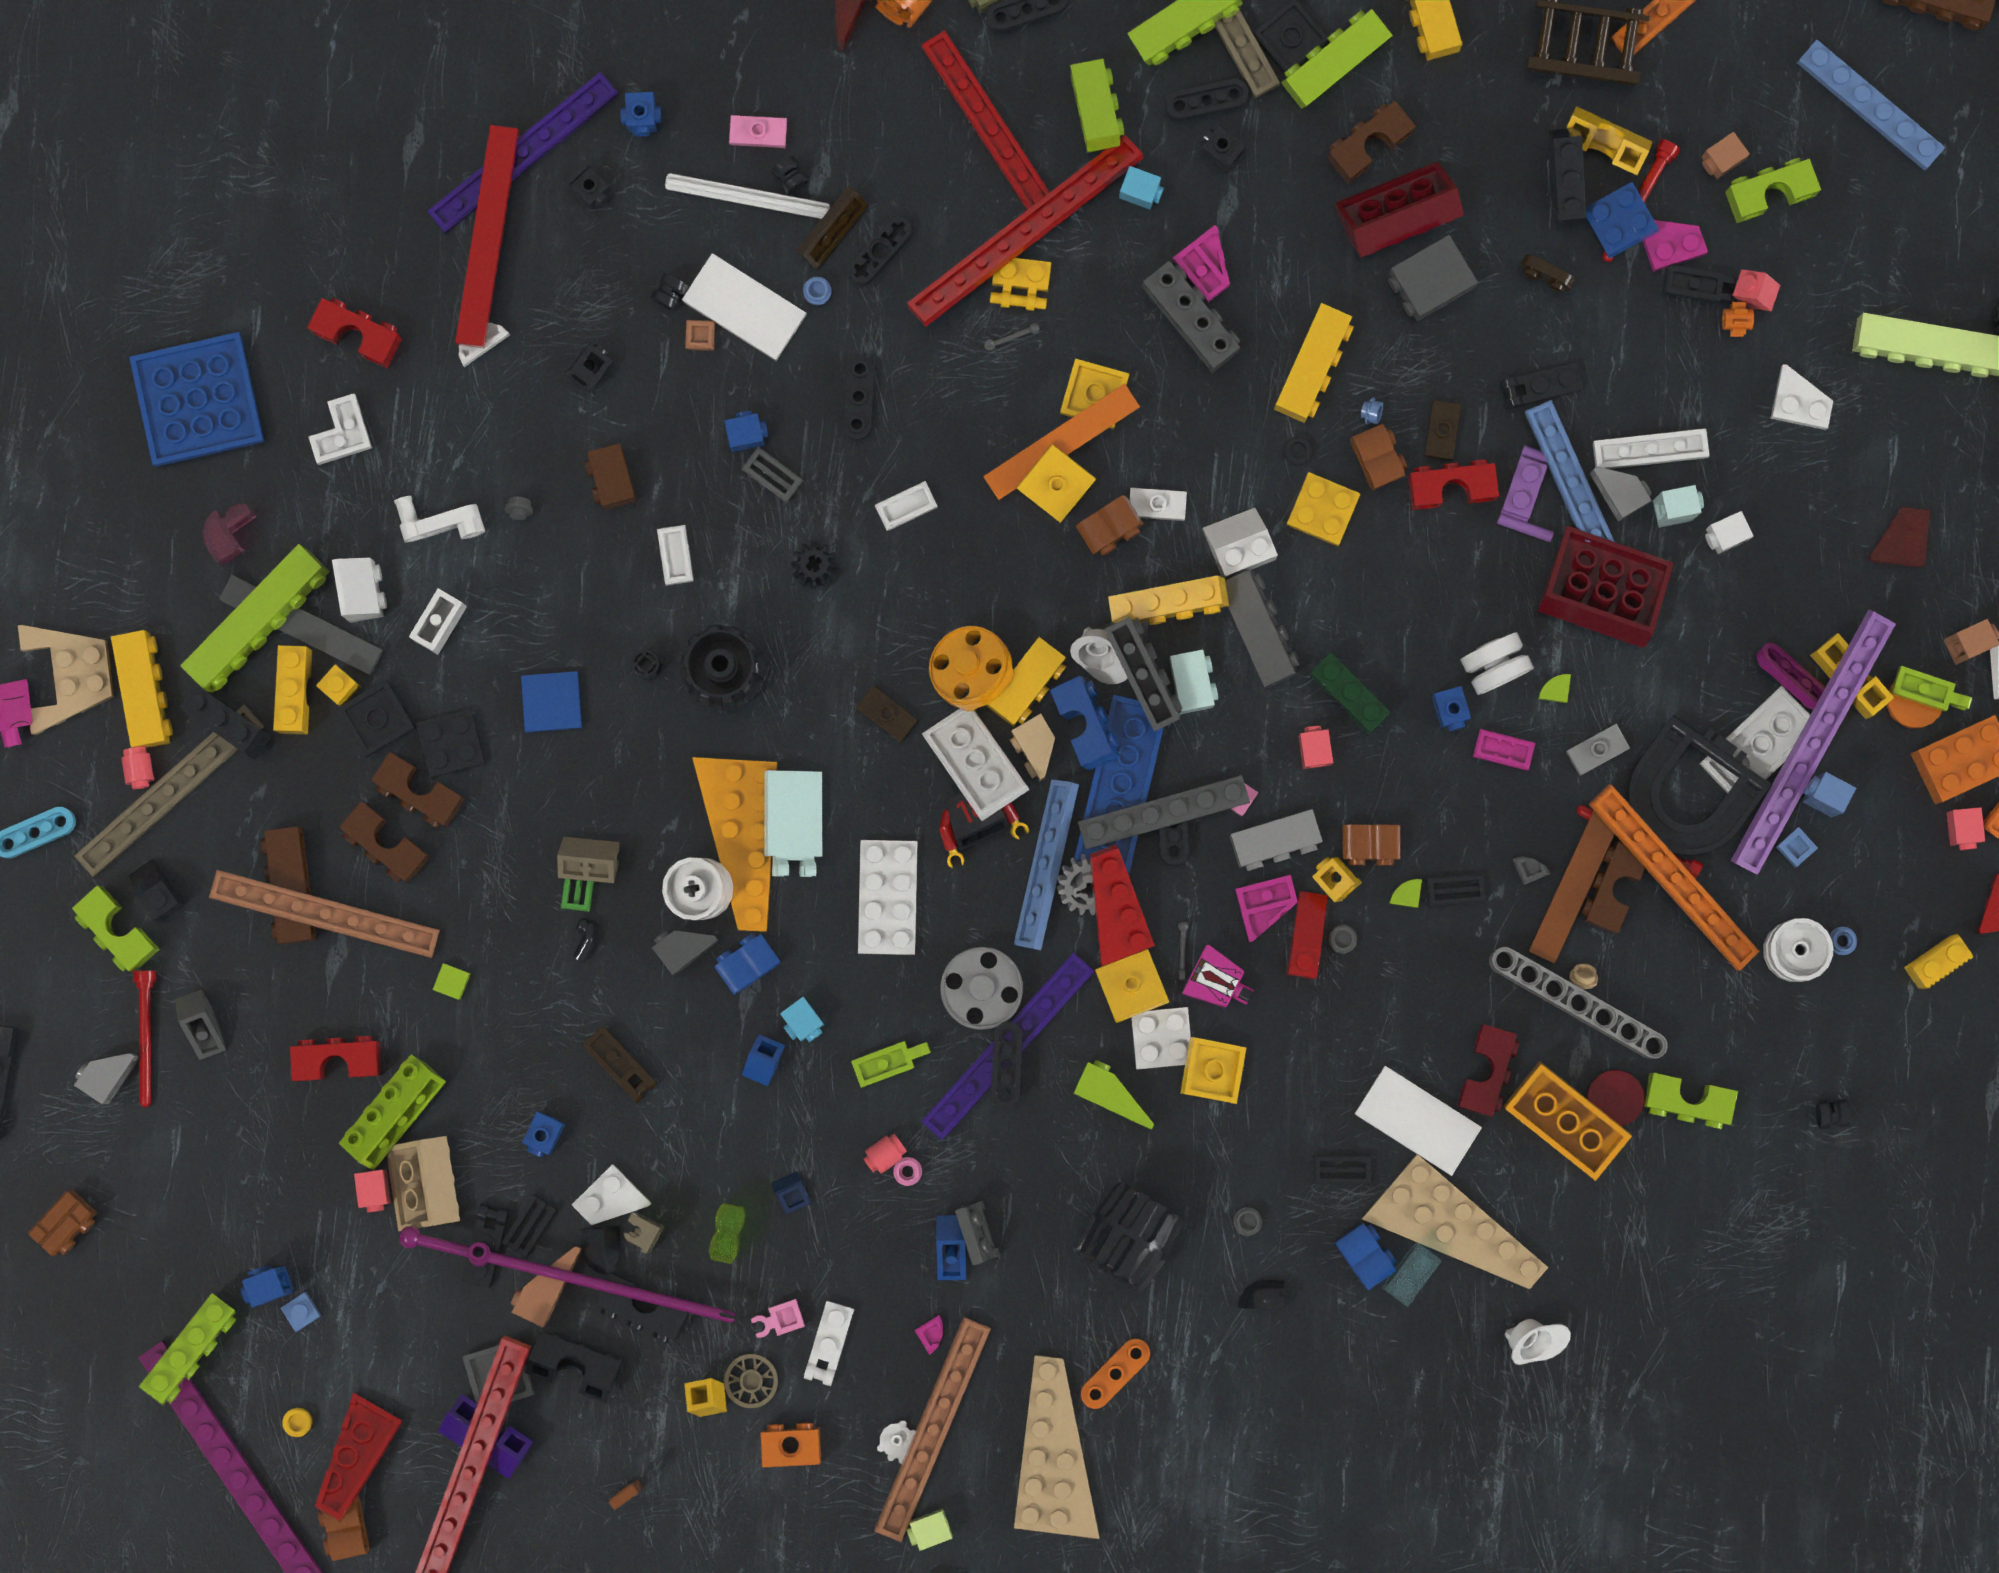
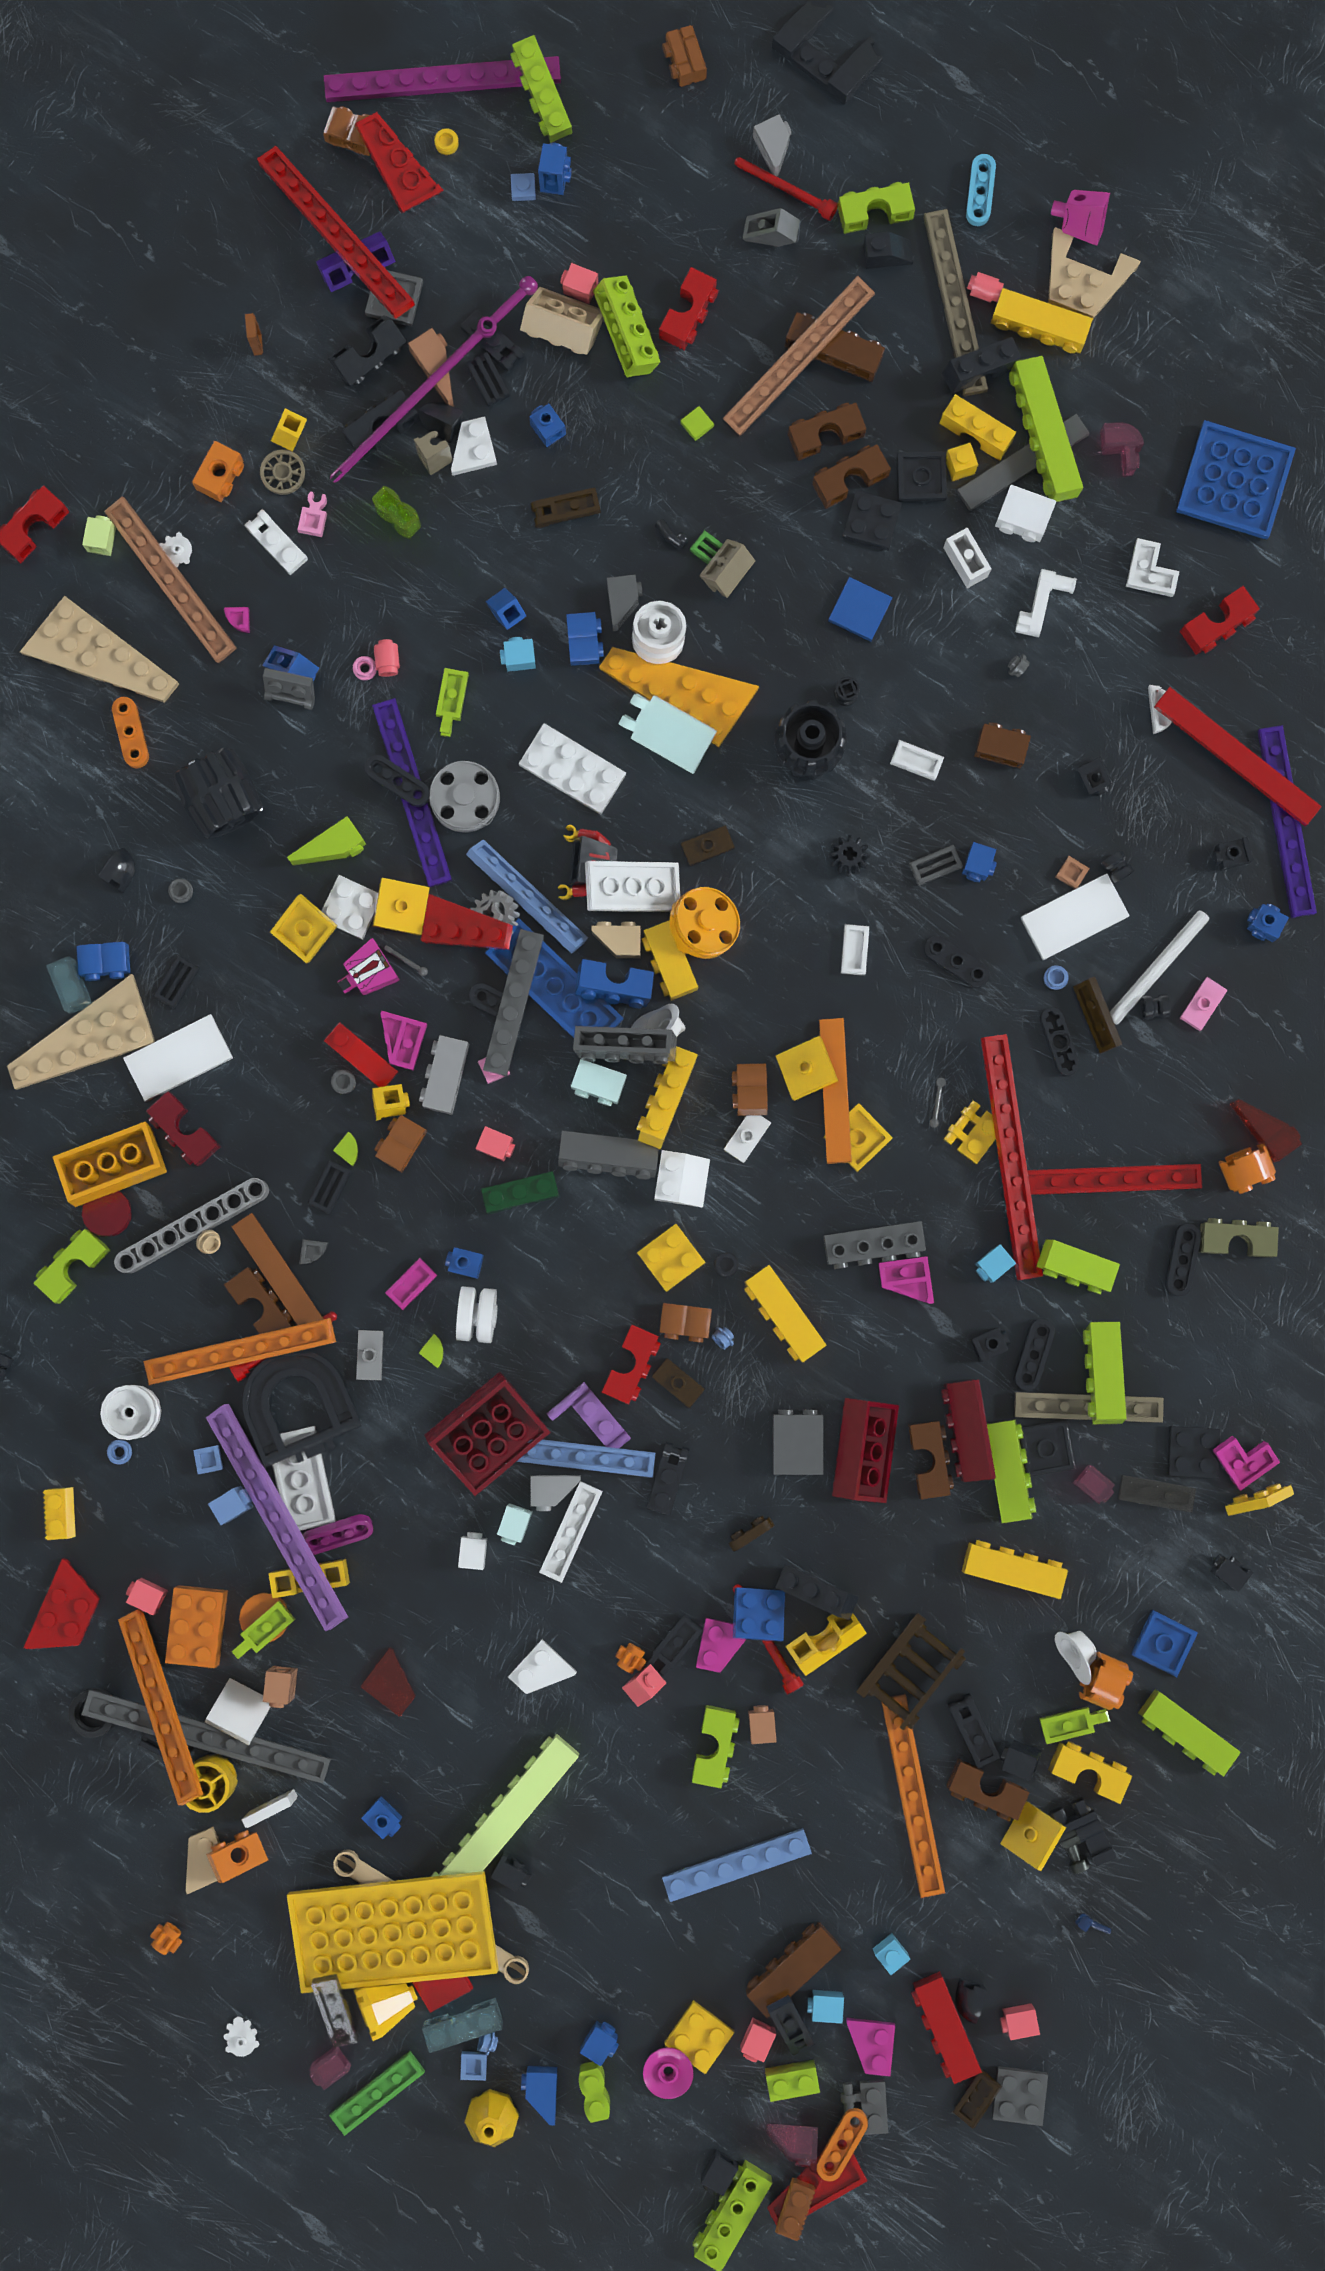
camera: 115 degrees right, 0 degrees up
(791, 1193) = (400, 577): dark blue slope -> none
(1320, 119) = (969, 1430): none -> dark red slope

